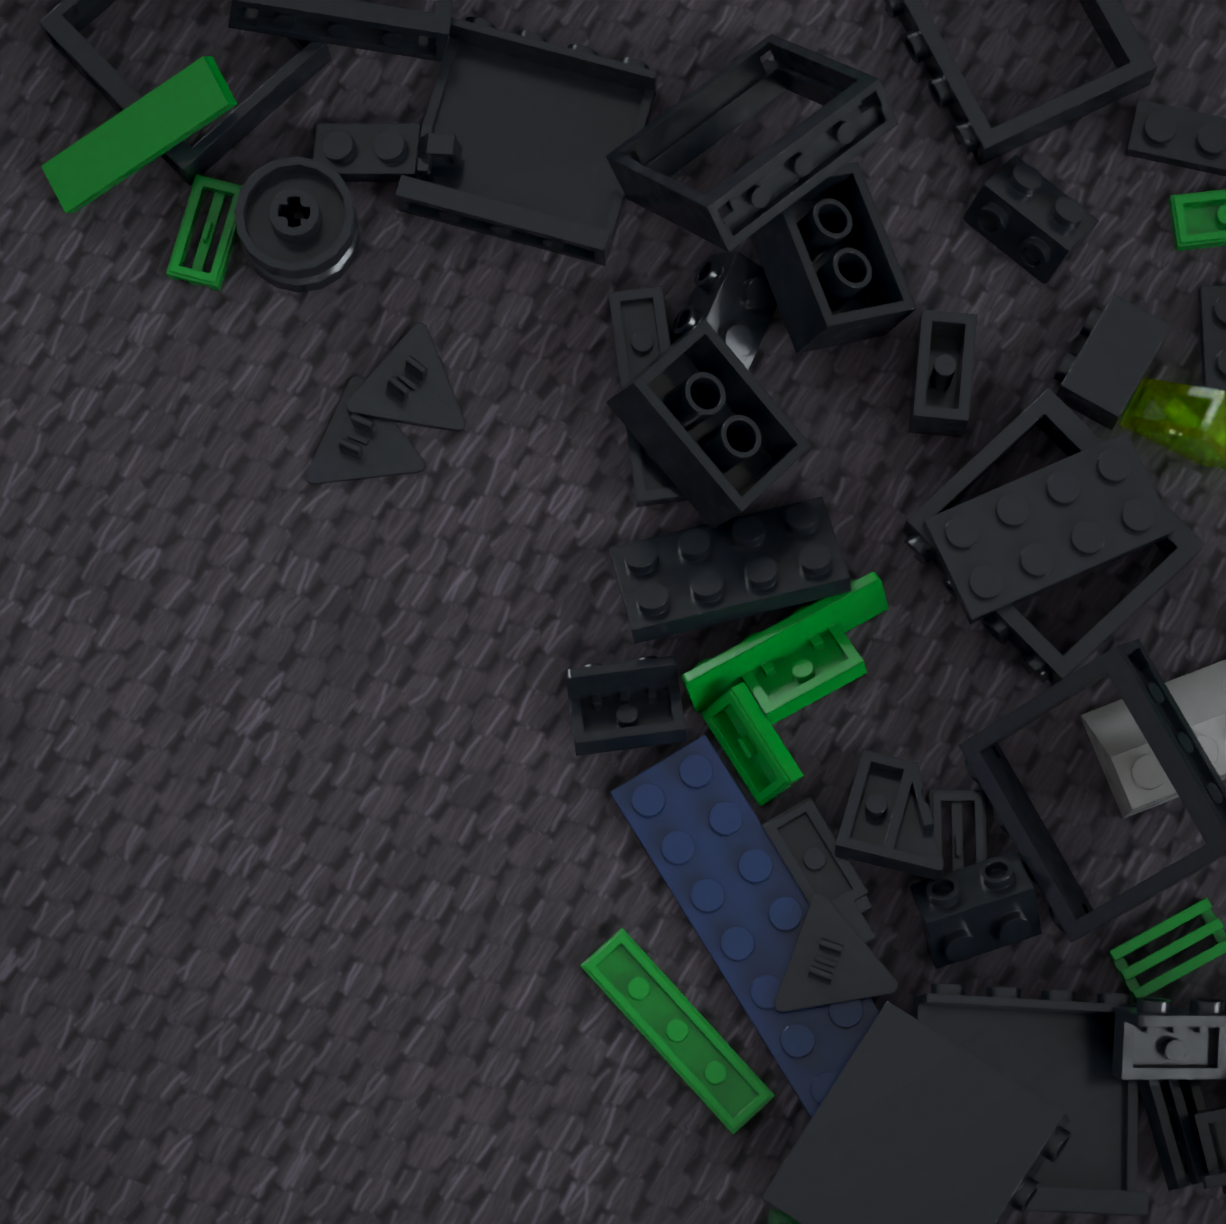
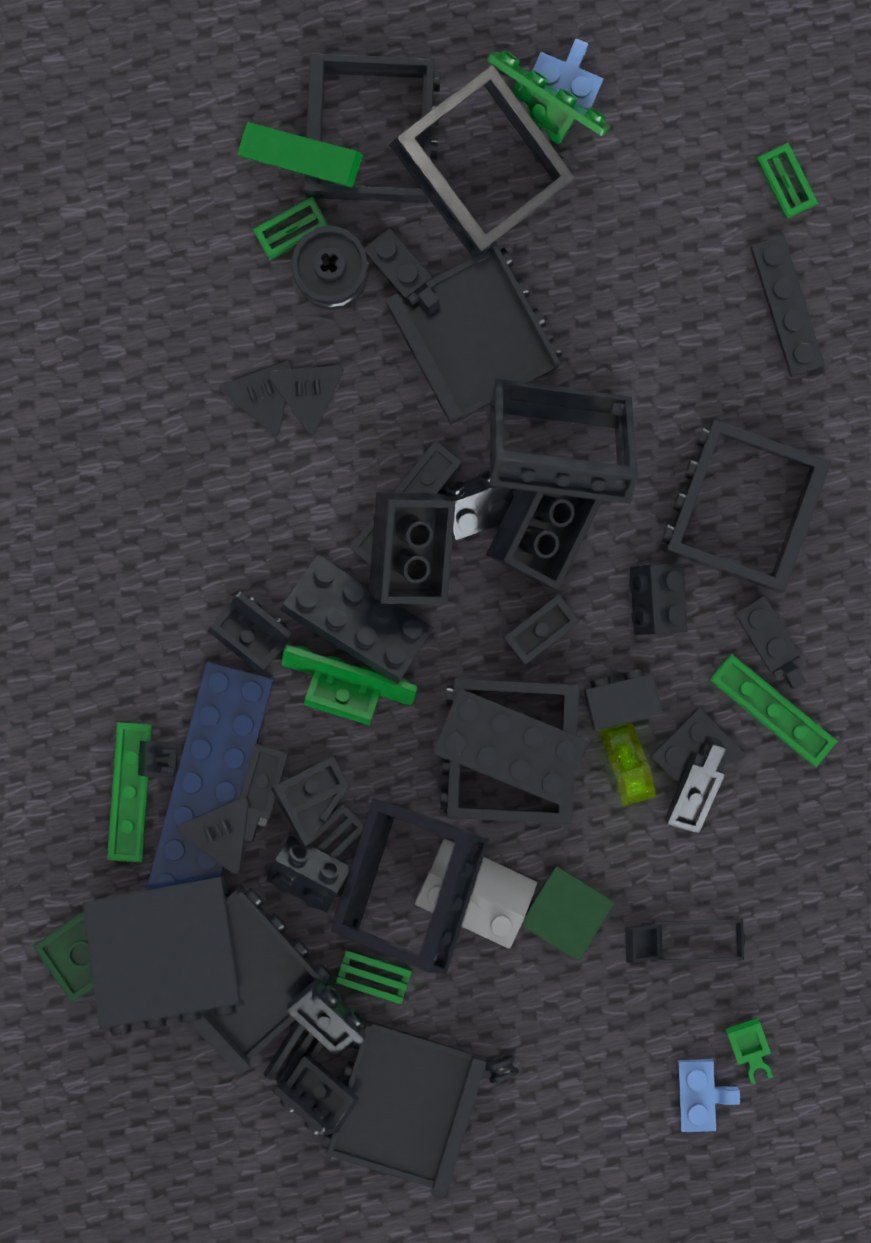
camera: 40 degrees right, 10 degrees up
(670, 957) = (157, 759): none -> black tile
(755, 739) = (287, 704): green tile -> none

